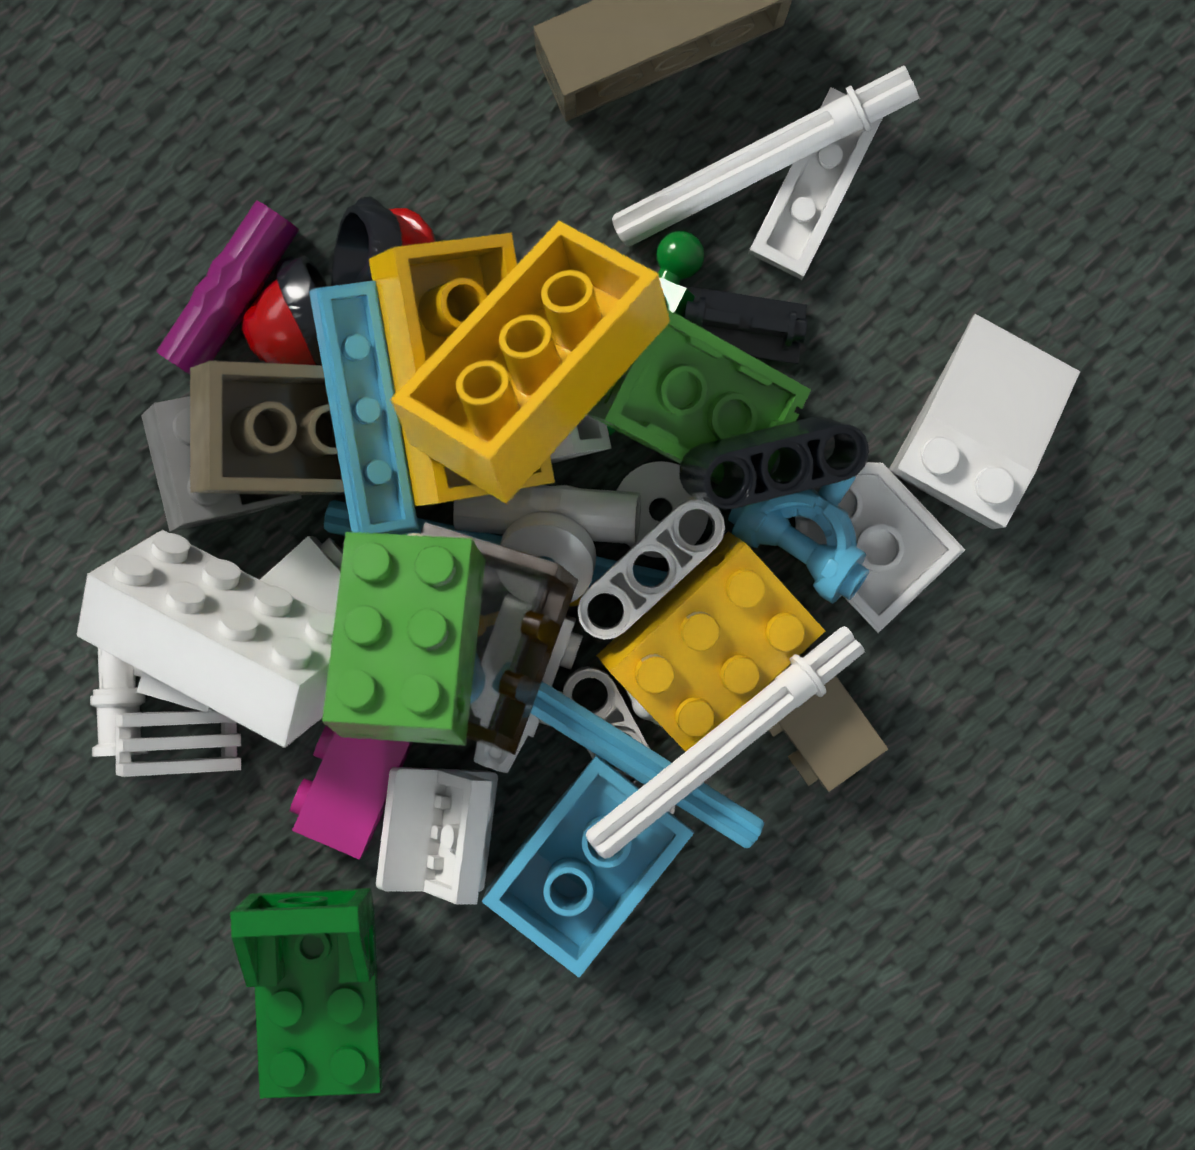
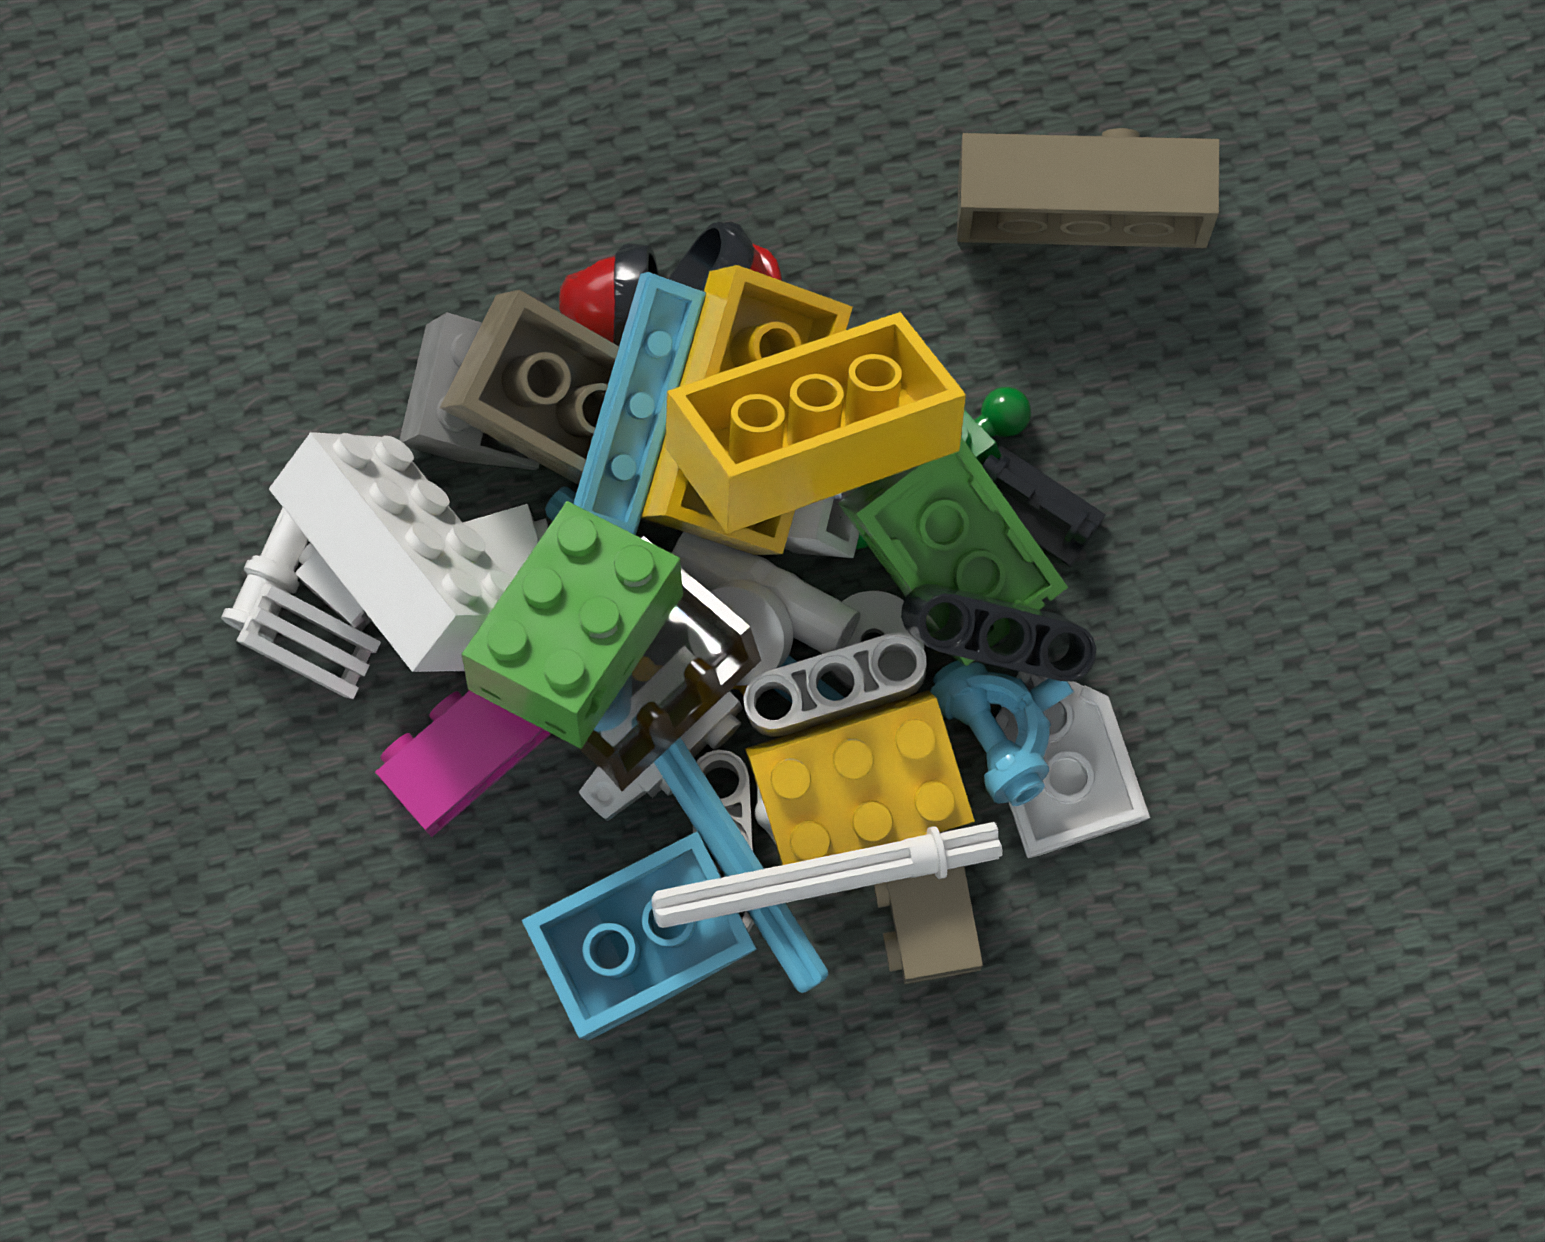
camera: 30 degrees right, 10 degrees down
(228, 288) = (568, 244): magenta axle -> none
(313, 990) = (318, 939): green bracket -> none
(437, 832) = (512, 839): white bracket -> none
(766, 156) = (1128, 356): white axle -> none
(810, 200) = (1166, 405): white plate -> none
(986, 424) = (1224, 704): white slope -> none

